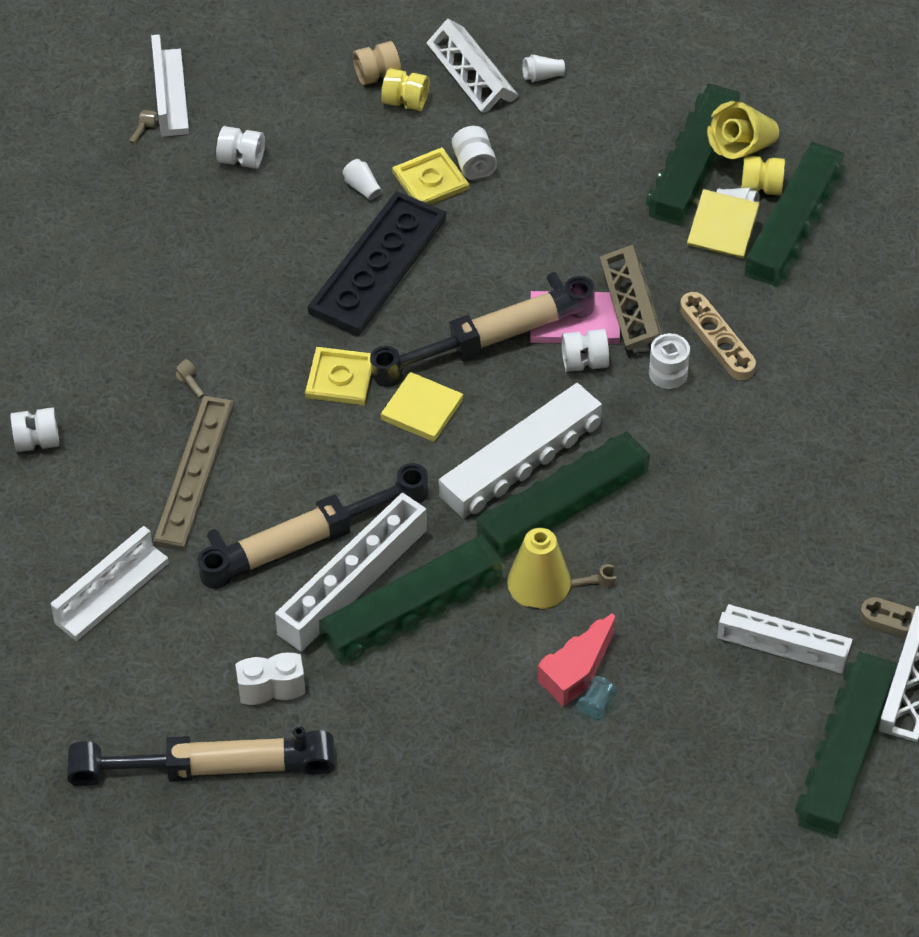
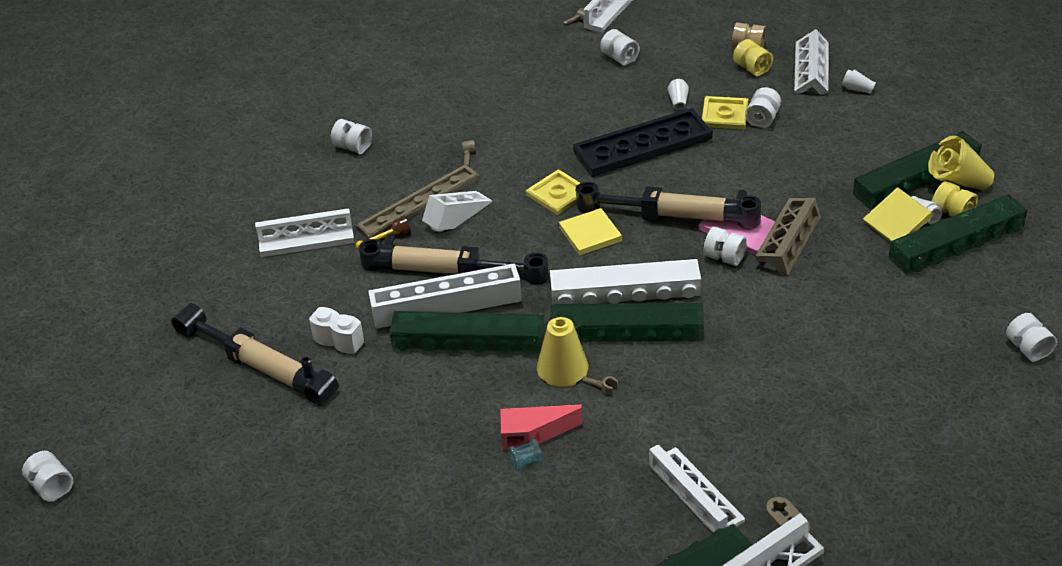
camera: 40 degrees right, 10 degrees down
(209, 516) = (399, 227): none -> reddish brown hinge
(251, 460) = (452, 209): none -> white slope
(669, 361) = (776, 278): white wheel -> none
(721, 334) = (827, 282): tan beam -> none

